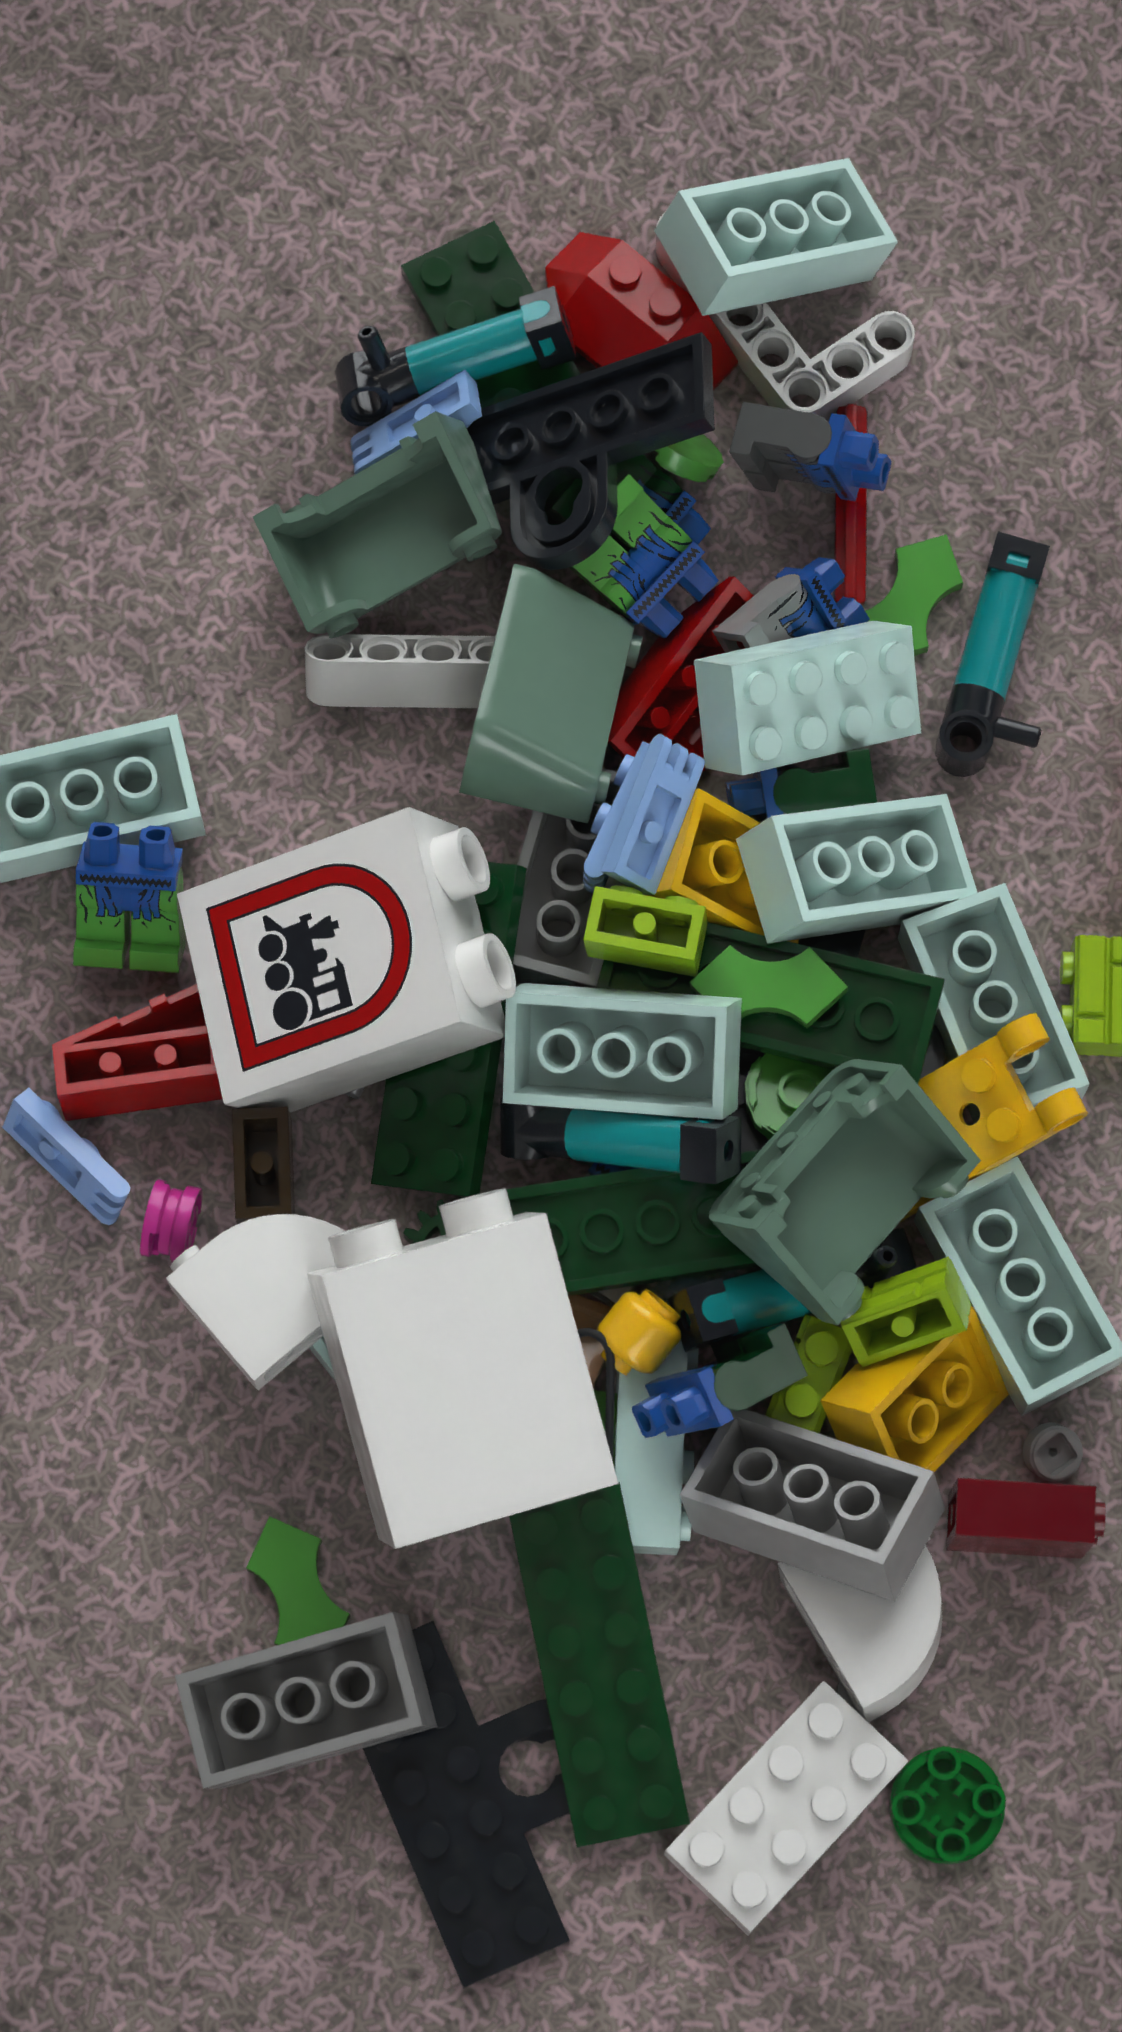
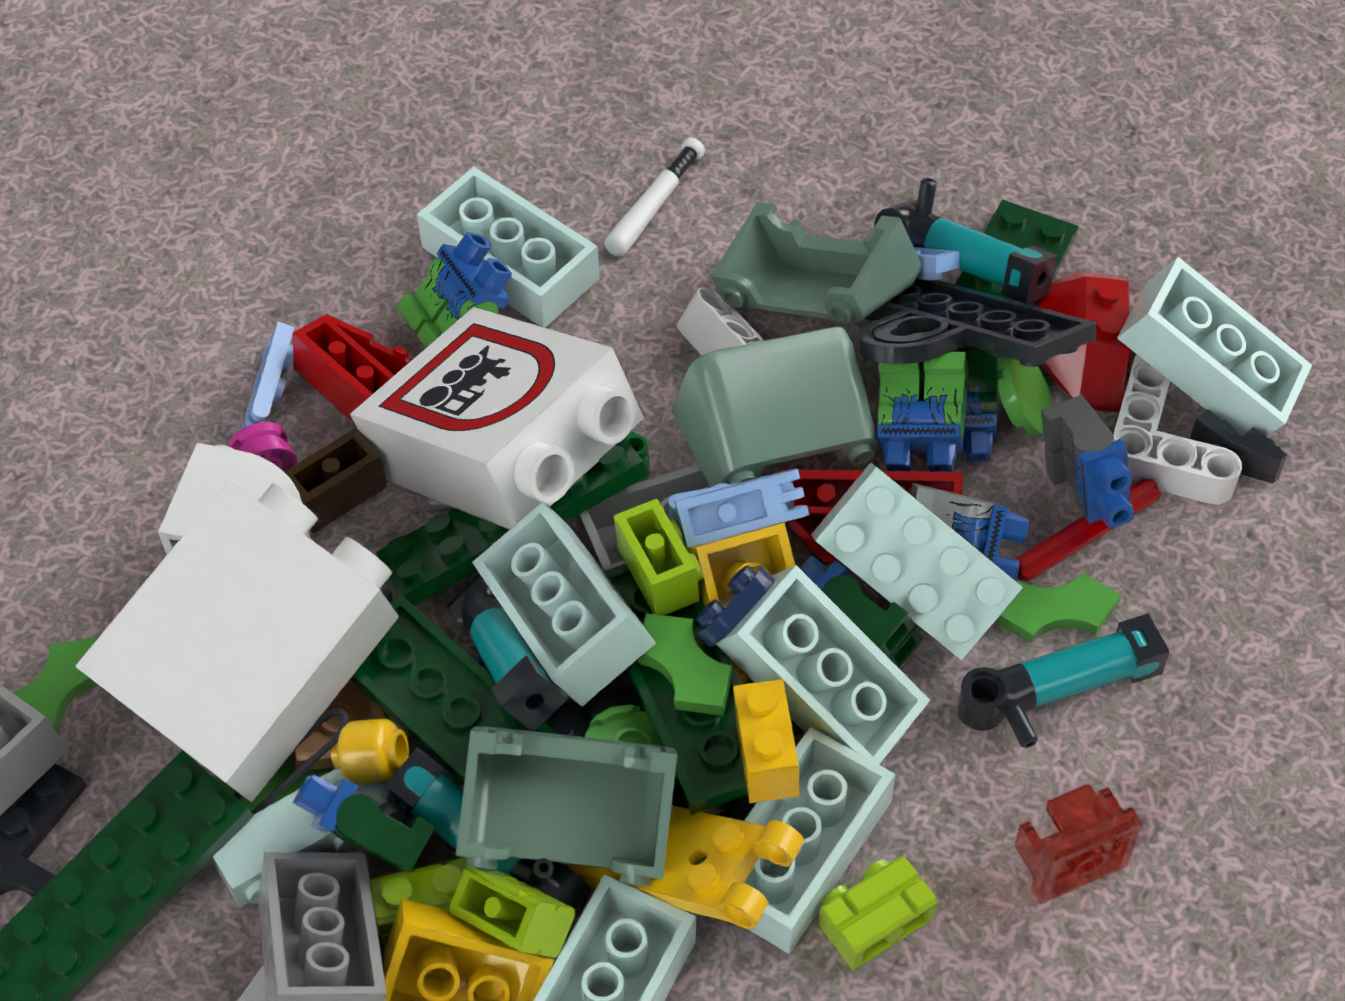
camera: 55 degrees right, 20 degrees down
(124, 621) = (645, 208): none -> white piece
(750, 898) = (721, 617): none -> dark blue plate
(890, 290) = (1259, 455): none -> black slope
(919, 974) = (766, 741): none -> yellow brick

